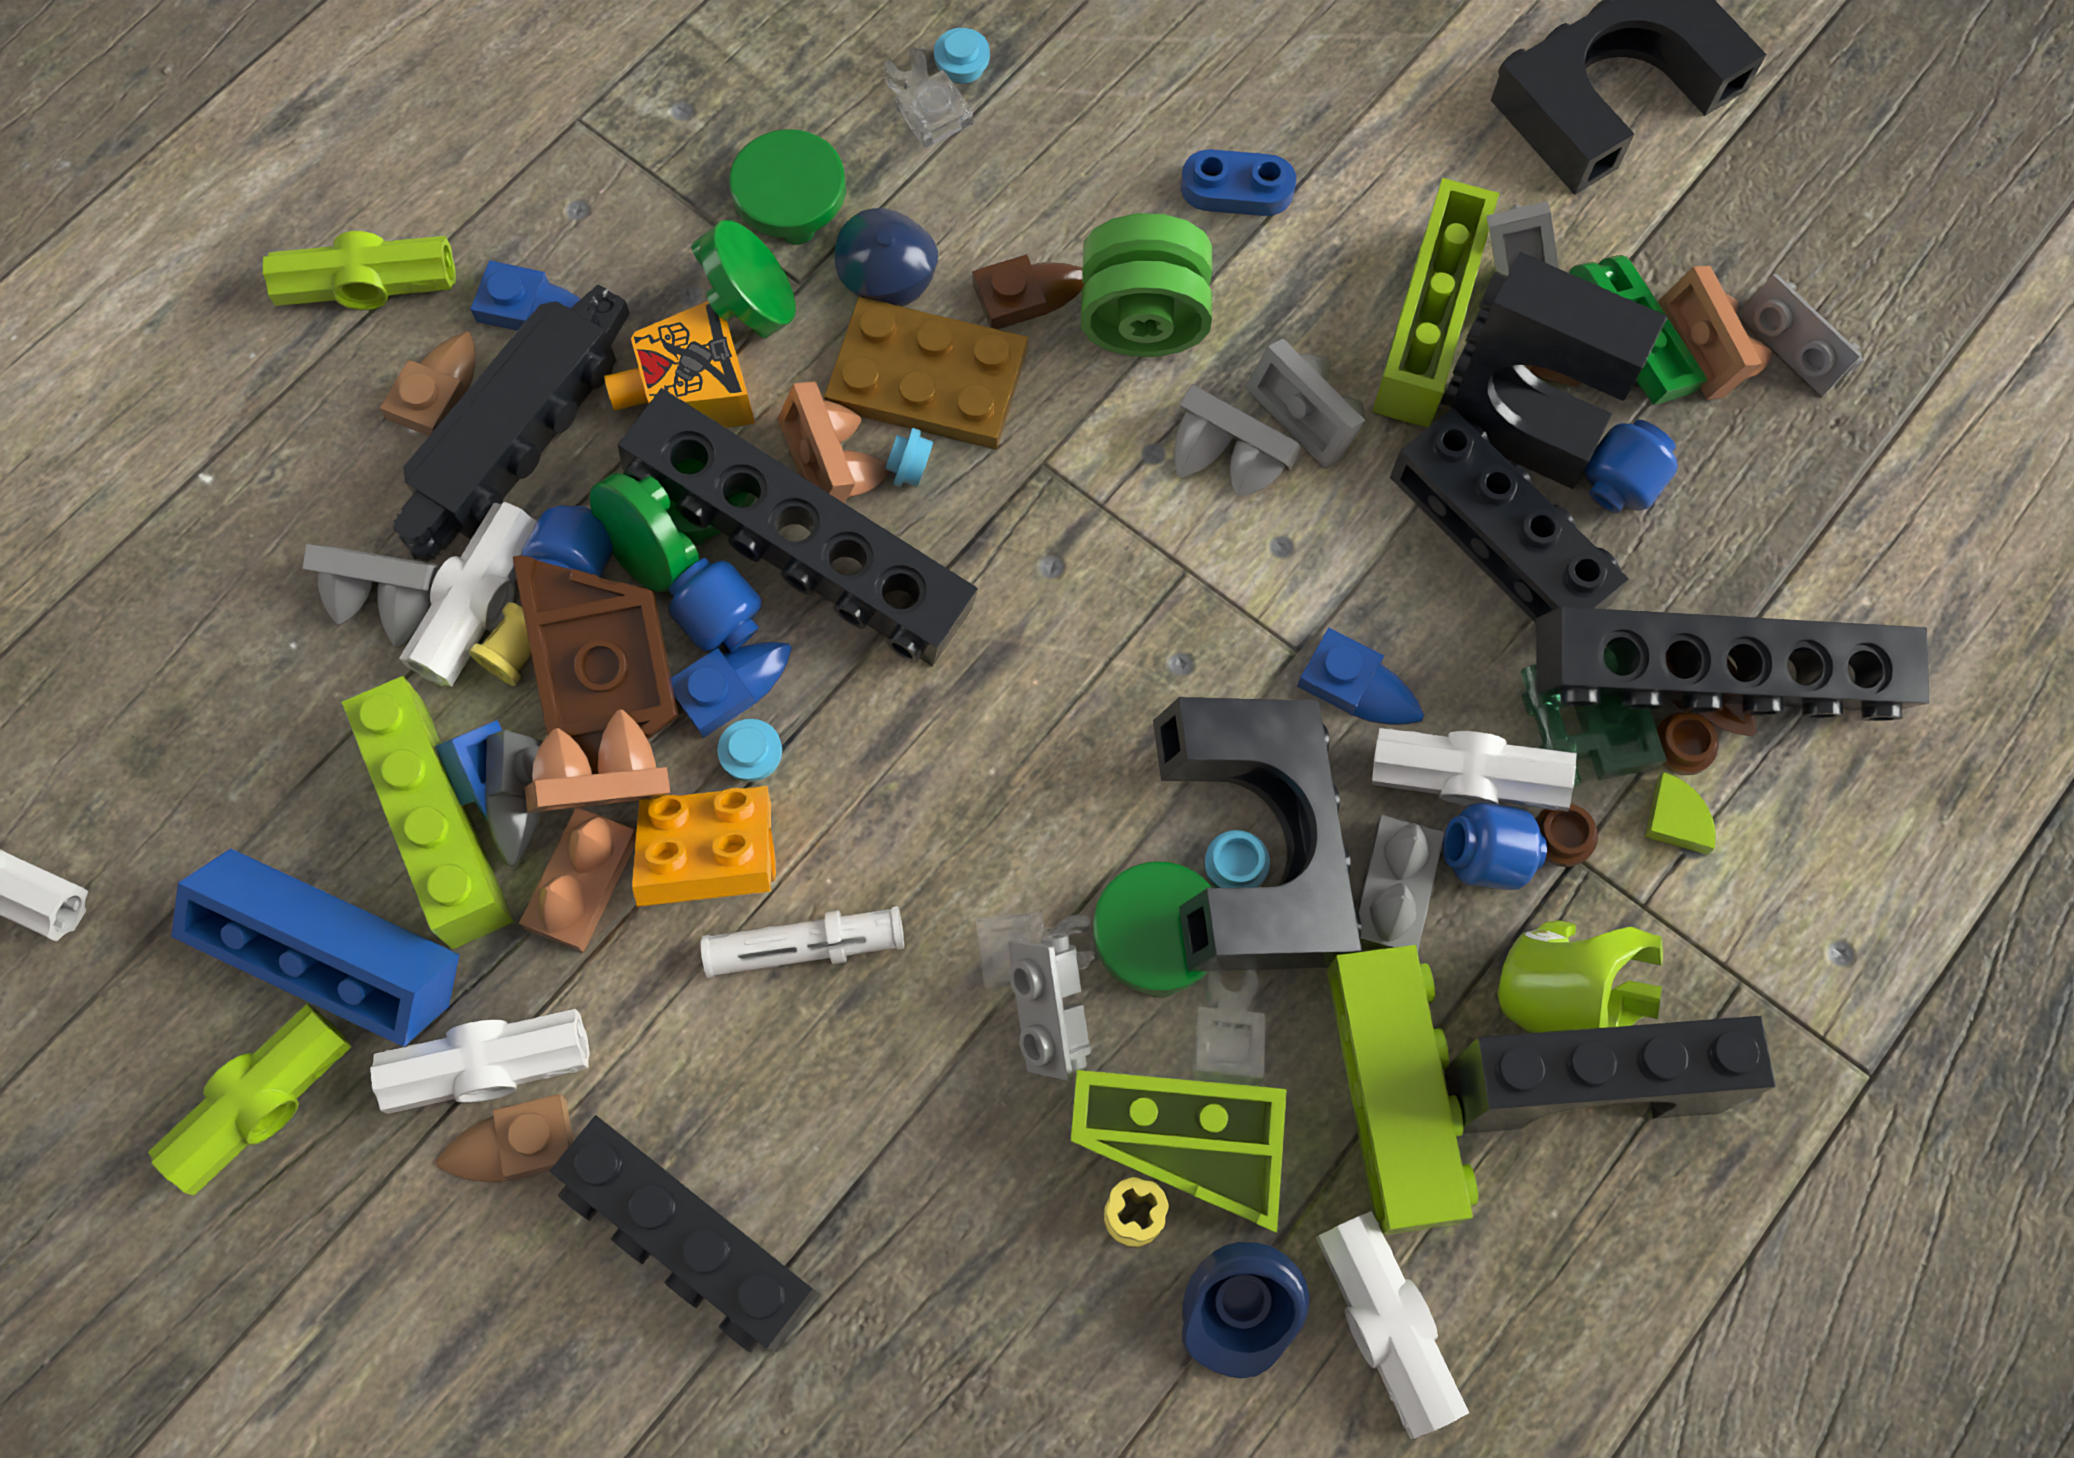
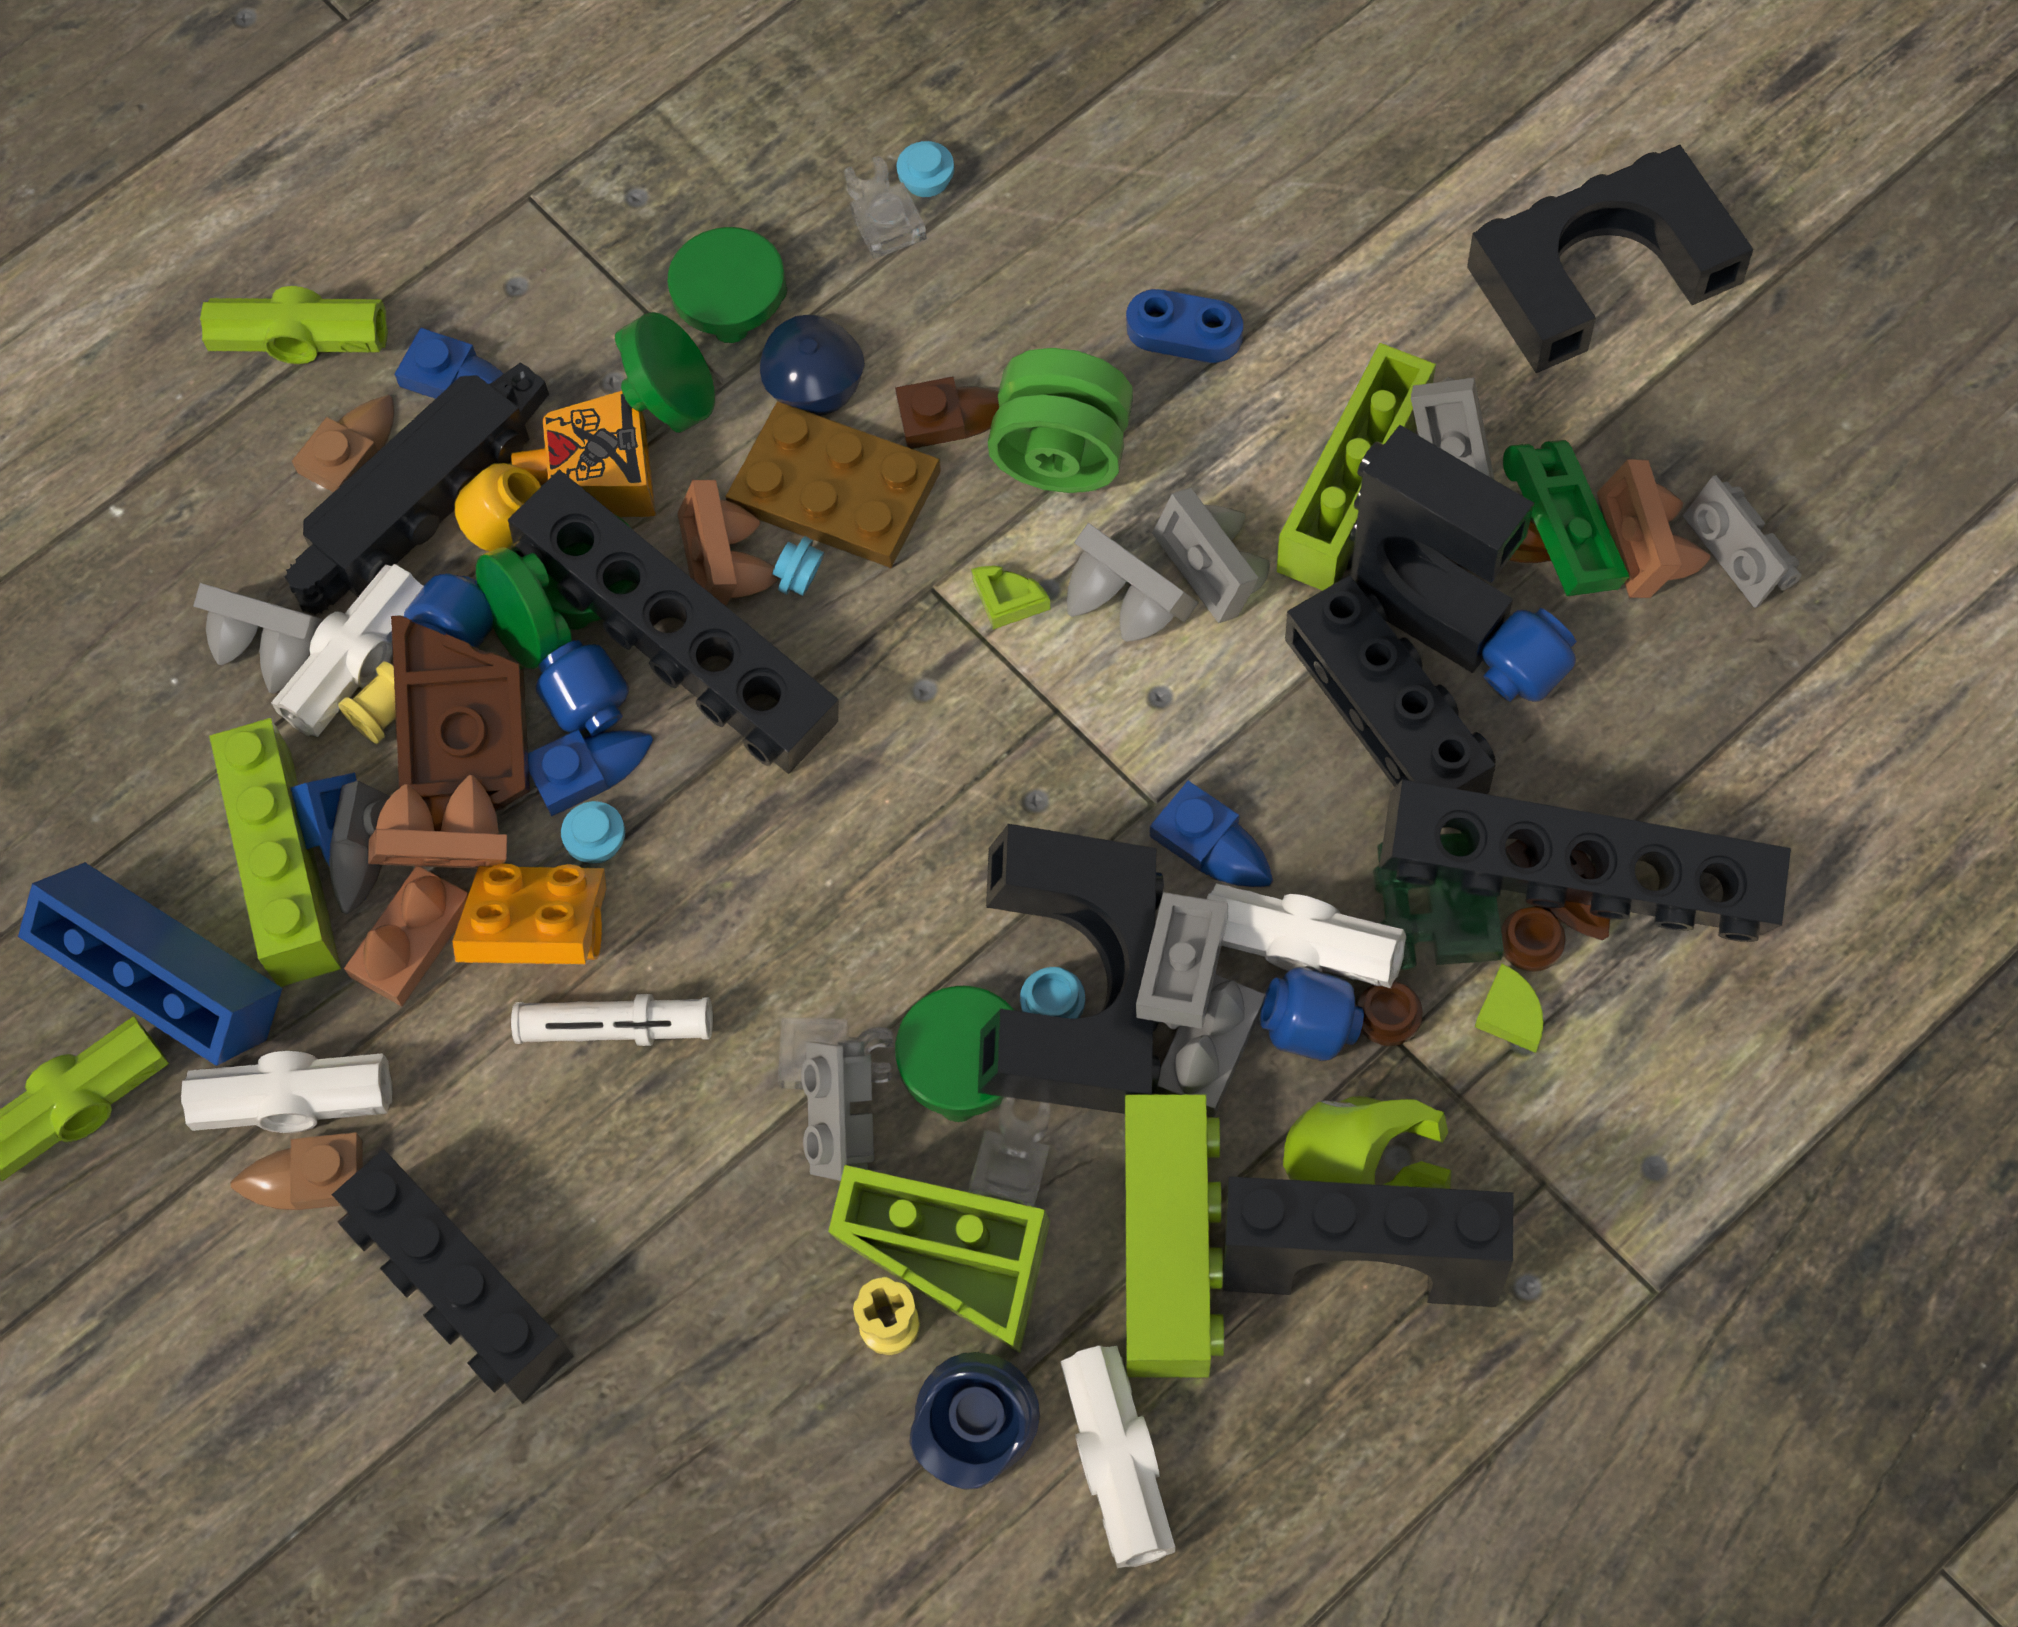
camera: 15 degrees right, 5 degrees down
(593, 428) = (490, 501): none -> yellow head
(1117, 463) = (1008, 595): none -> lime tile
(1370, 813) = (1182, 961): none -> light grey tile

